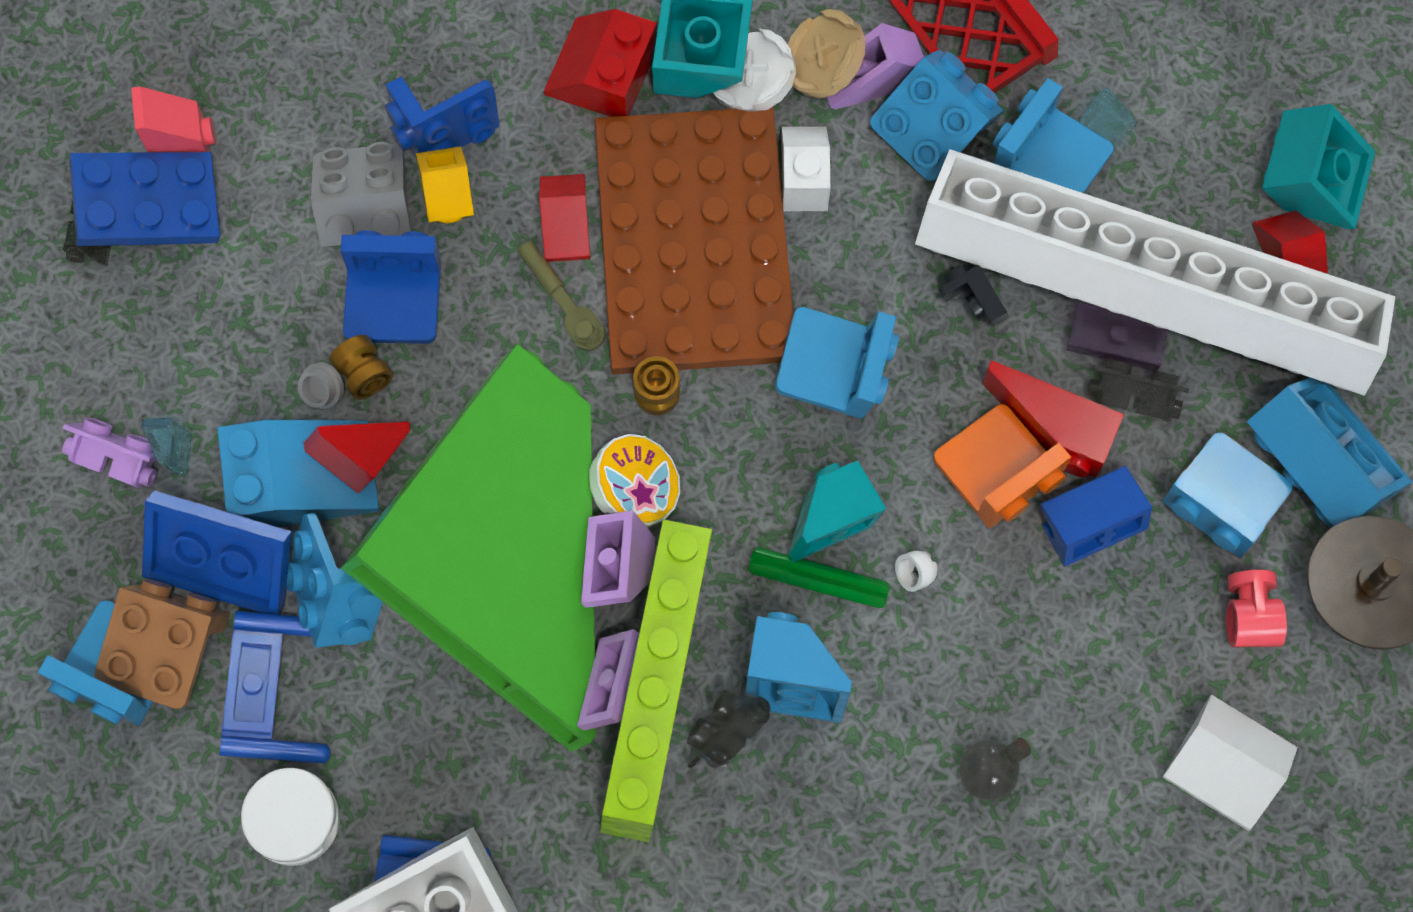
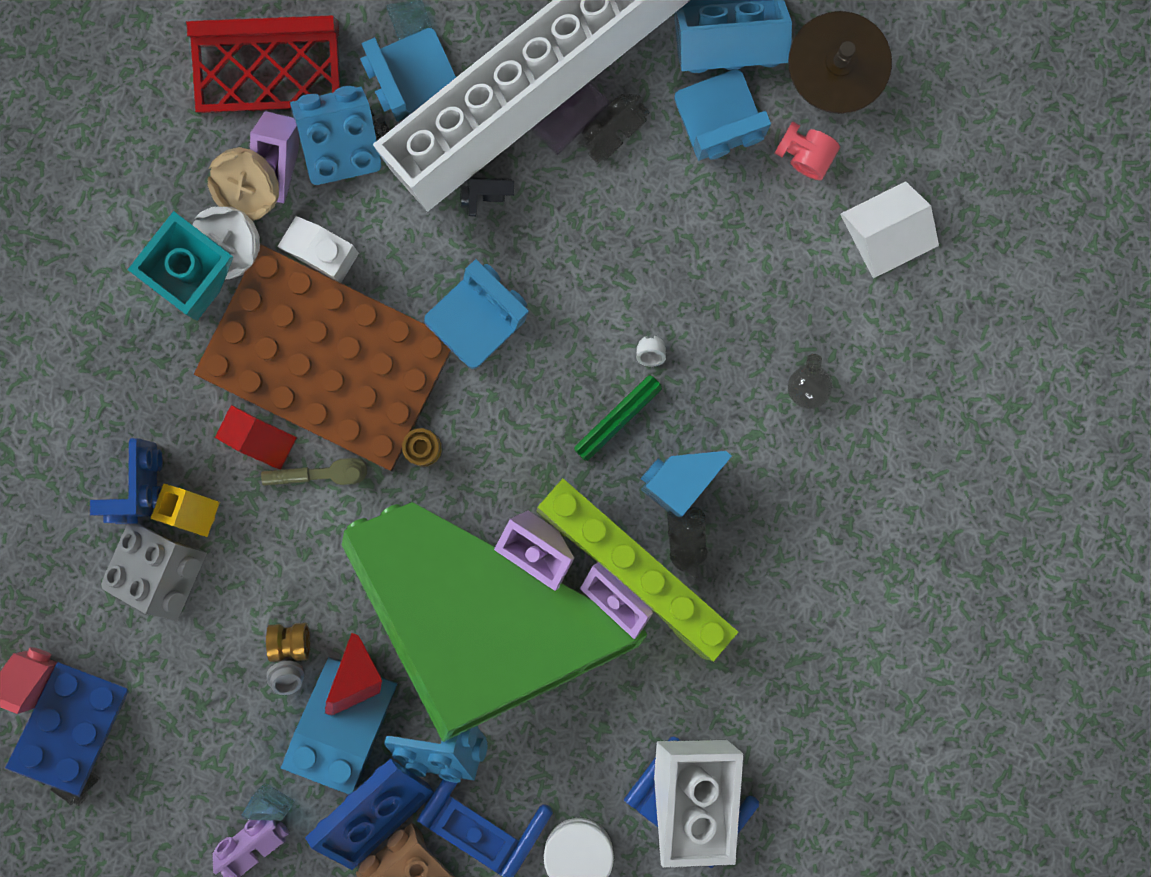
camera: 60 degrees left, 15 degrees up
(391, 286) = (241, 590): blue bracket -> none
(604, 62) = (153, 343): red slope -> none
(635, 476) = (482, 502): tile -> none
(835, 509) = (580, 381): teal slope -> none
(1000, 465) = (614, 251): orange bracket -> none
(1057, 417) = (608, 193): slope -> none
(1095, 515) = (684, 211): blue hinge -> none

